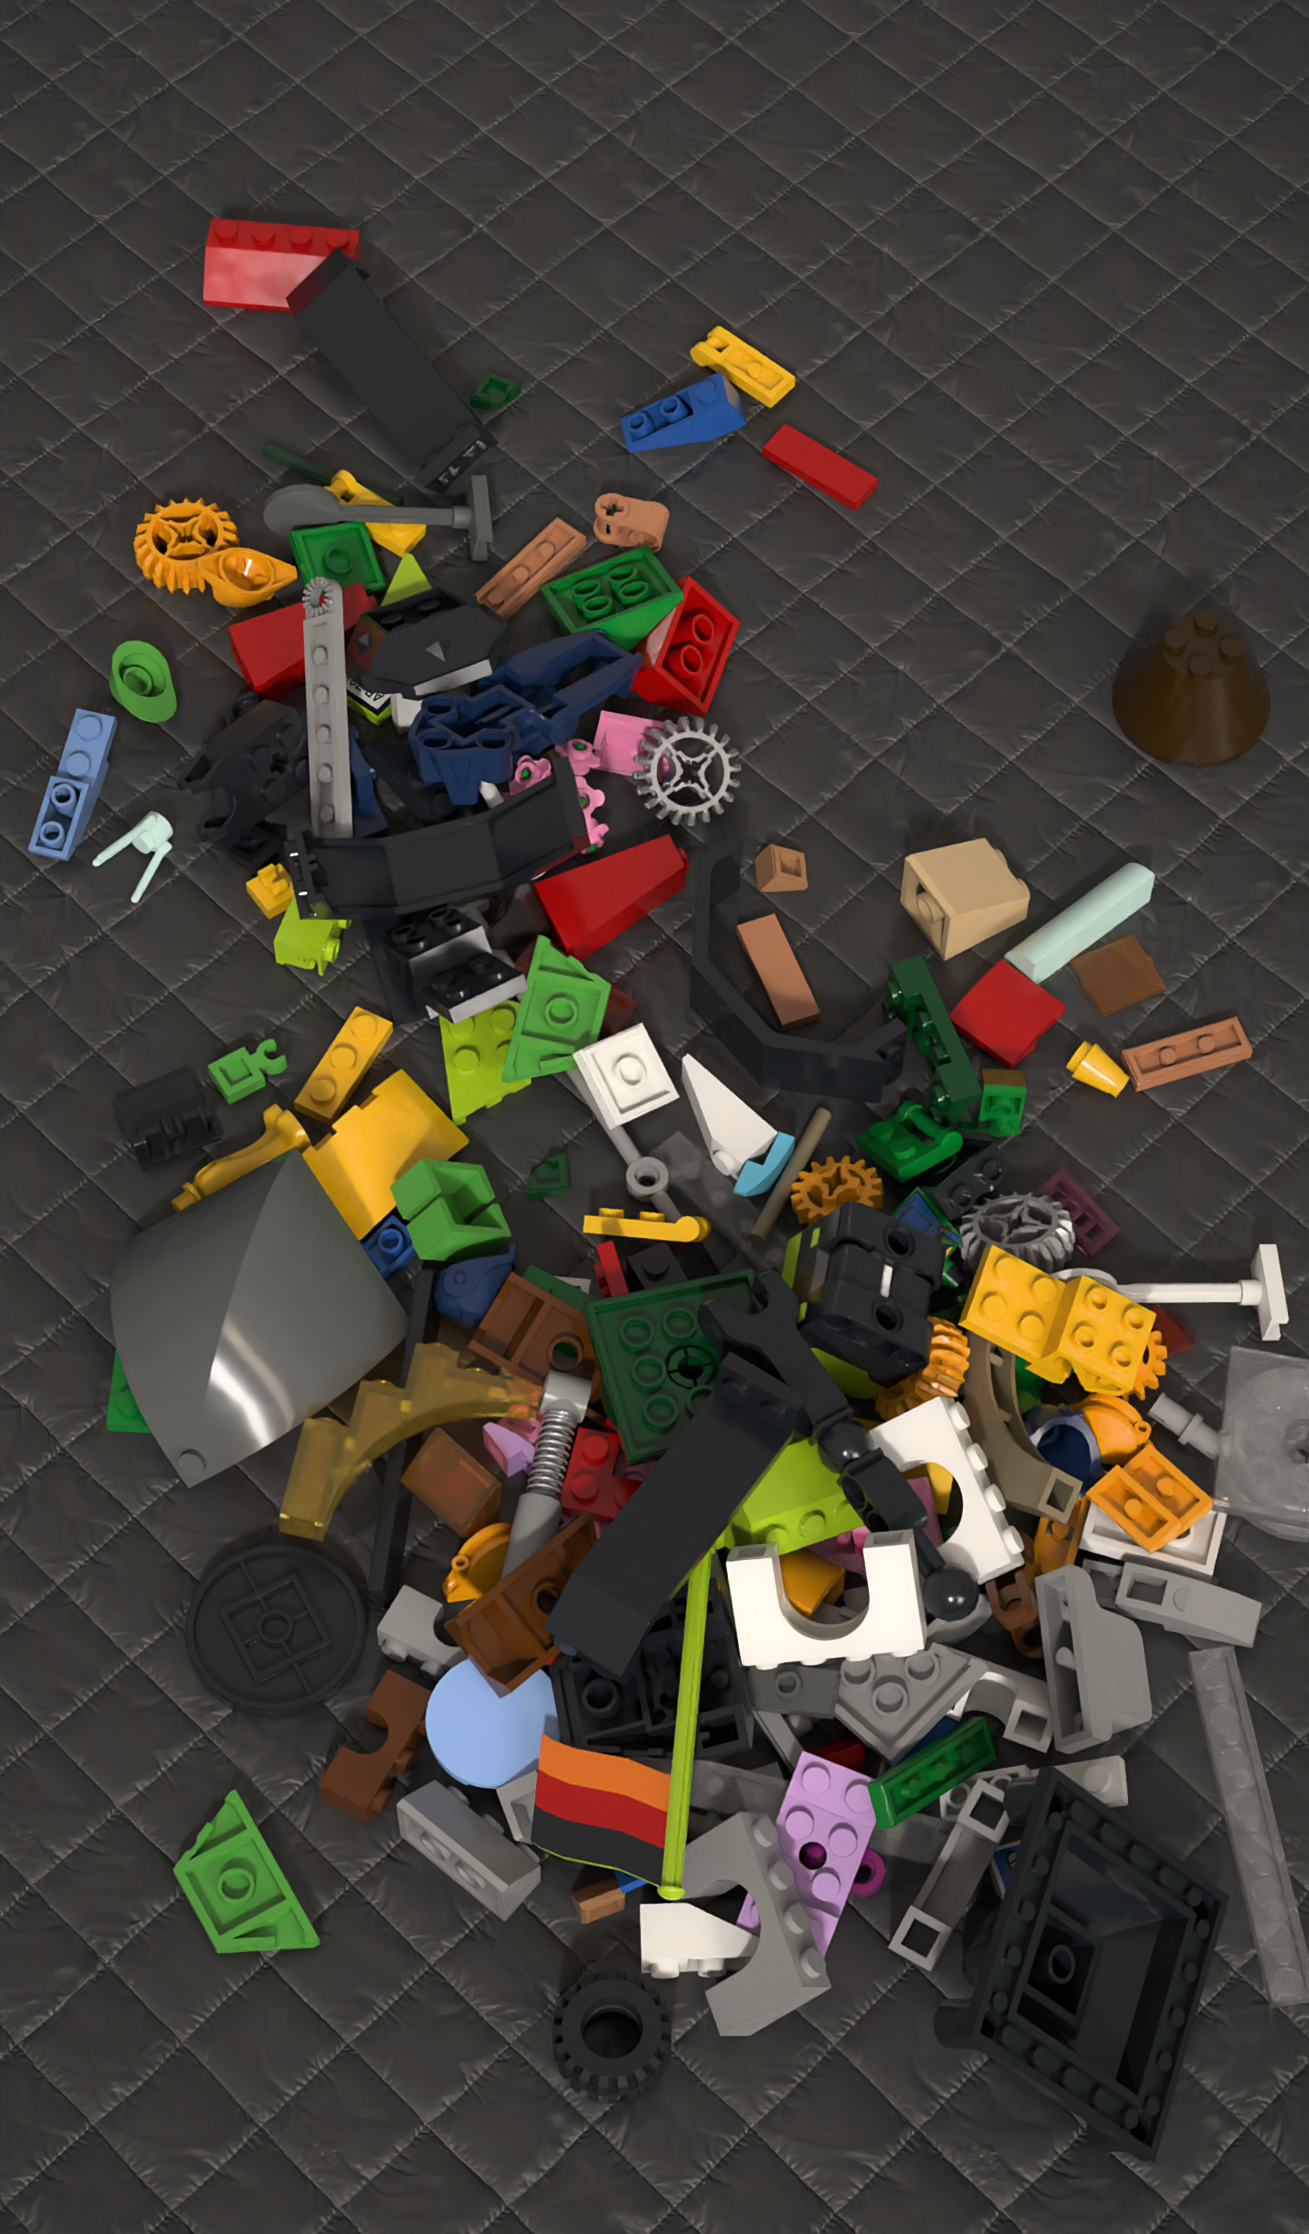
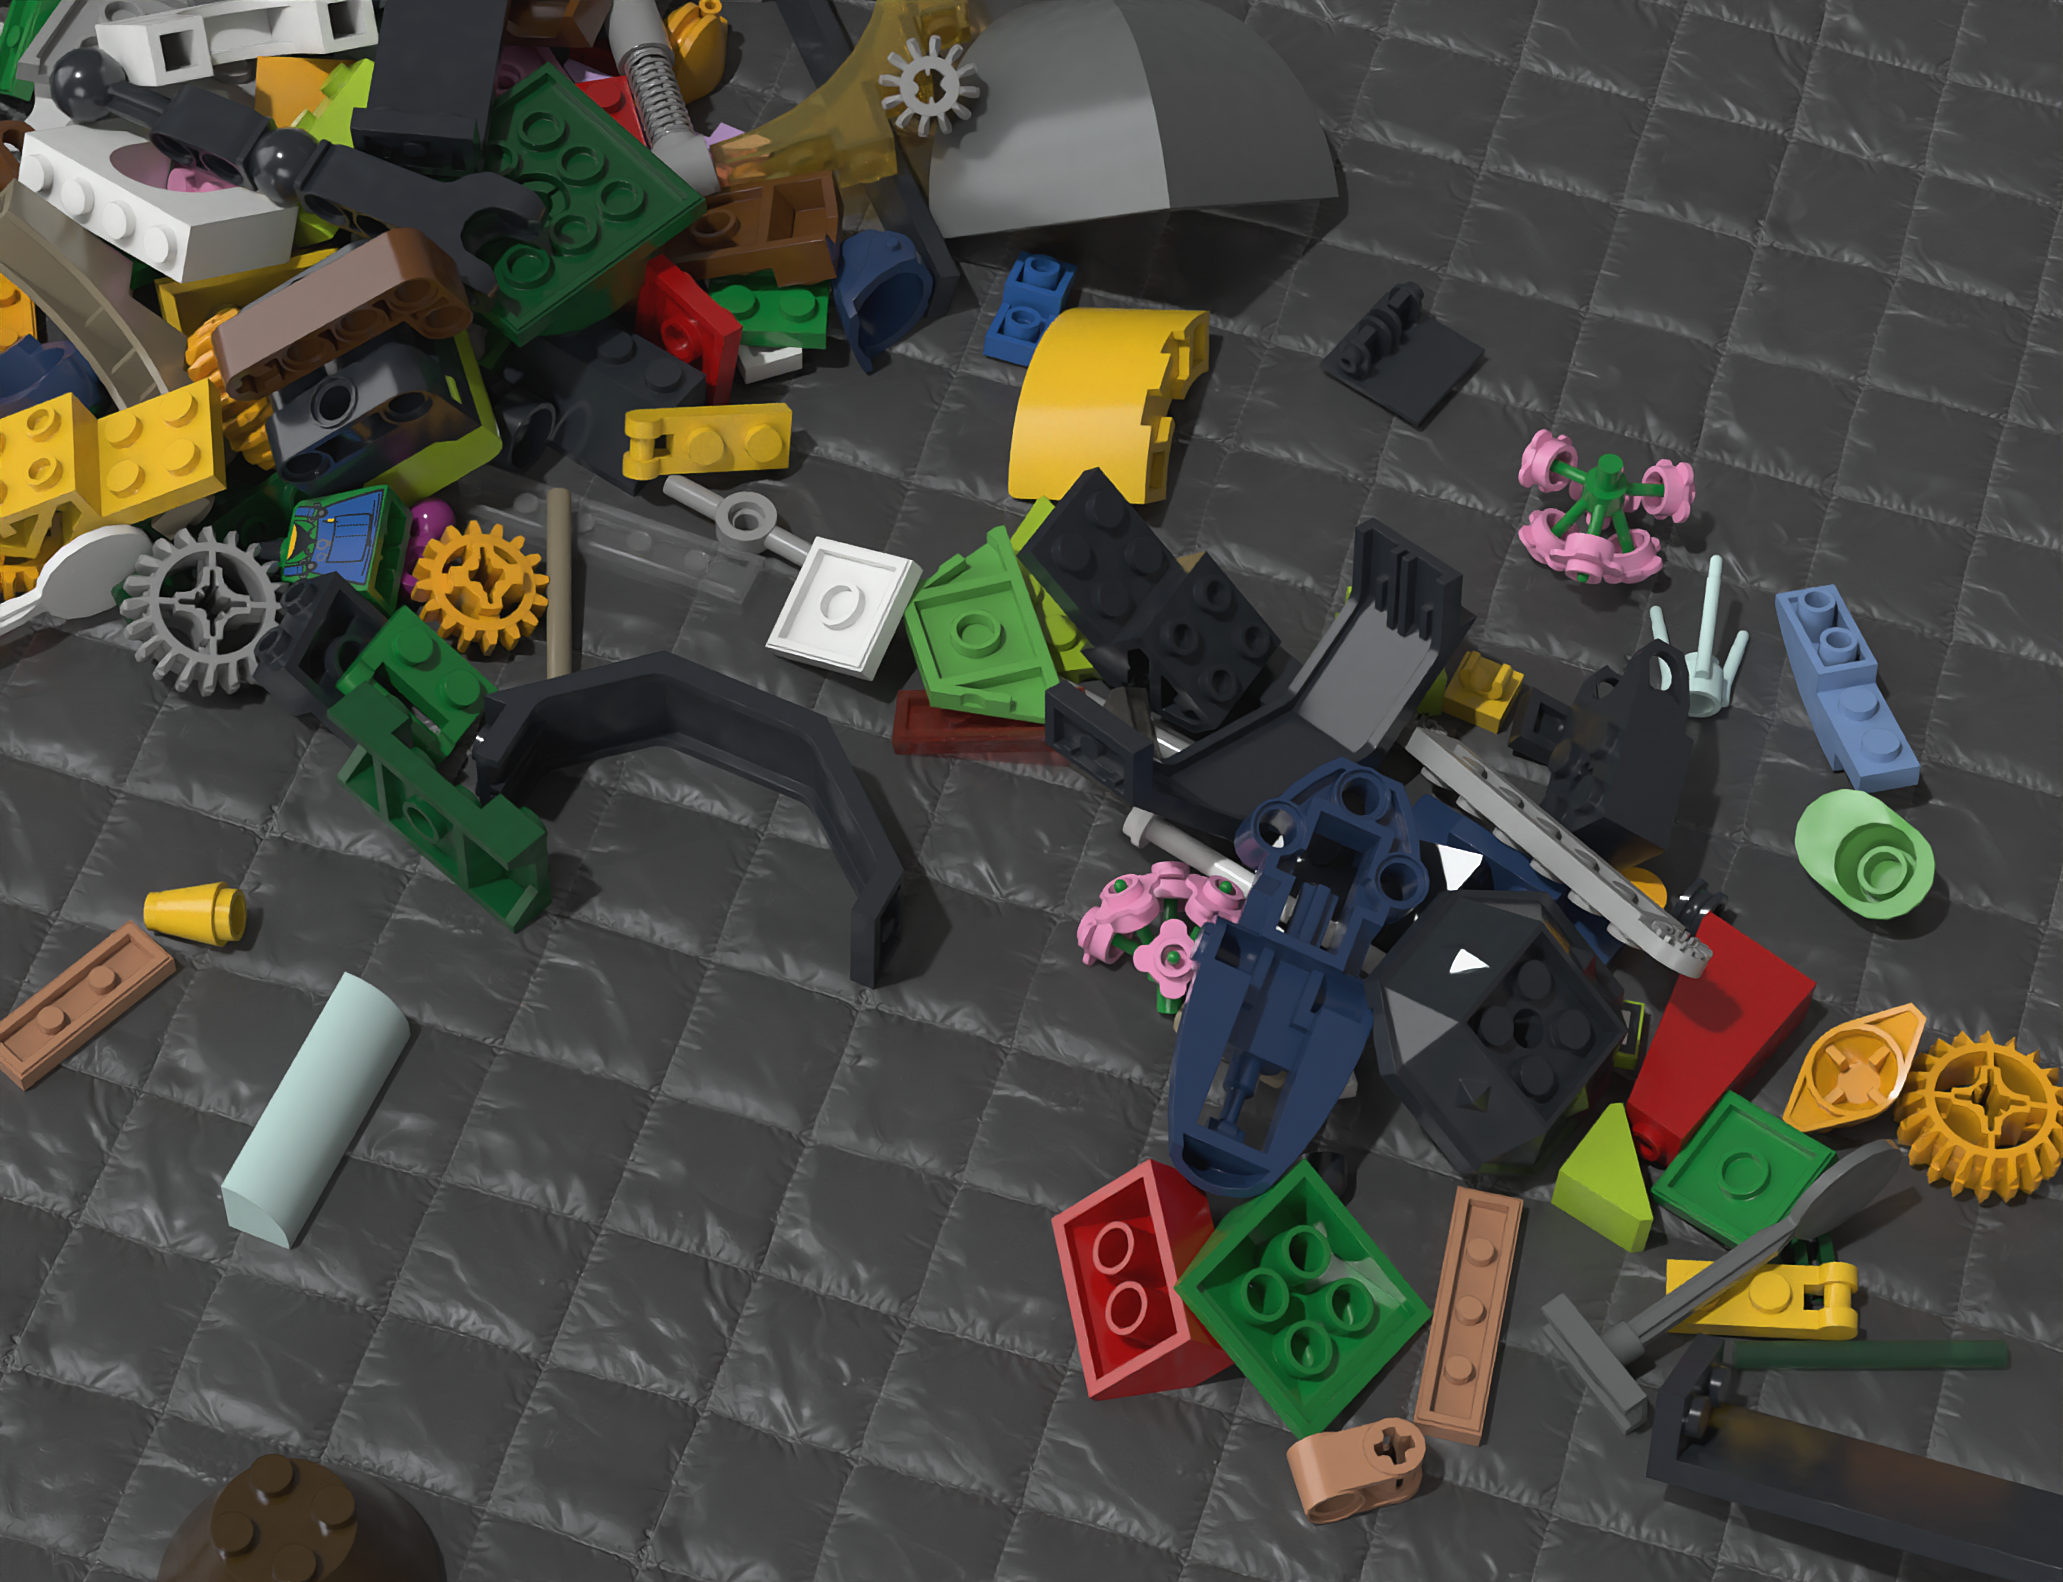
camera: 150 degrees right, 5 degrees down
(130, 926) = (1604, 496): none -> bright pink plant
(242, 1073) = (1344, 441): bright green plate -> none
(281, 1135) = (1278, 307): yellow piece -> none
(343, 1066) = (1231, 506): yellow plate -> none
(374, 1355) = (909, 88): none -> light grey gear
(438, 1203) = (961, 338): bright green piece -> none
(454, 1485) = (757, 74): clear orange slope -> none
(549, 1179) = (875, 487): dark green tile -> none
(610, 894) = (1023, 858): red slope -> none
(619, 740) = (1110, 1108): bright pink hinge -> none
(671, 782) = (1012, 1056): light grey gear -> none
(727, 1124) = (665, 609): white slope -> none
(760, 1179) = (596, 573): medium azure slope -> none
(778, 972) = (725, 871): nougat tile -> none
(780, 869) = (800, 1023): medium nougat slope -> none
(875, 1263) = (338, 309): none -> reddish brown beam
(962, 895) = (506, 1058): tan slope -> none
(1002, 1102) = (313, 787): green slope -> none
(1006, 1014) = (368, 931): red slope -> none
(1084, 1204) = (188, 733): clear pink slope -> none
(1118, 975) = (223, 1082): clear orange piece -> none

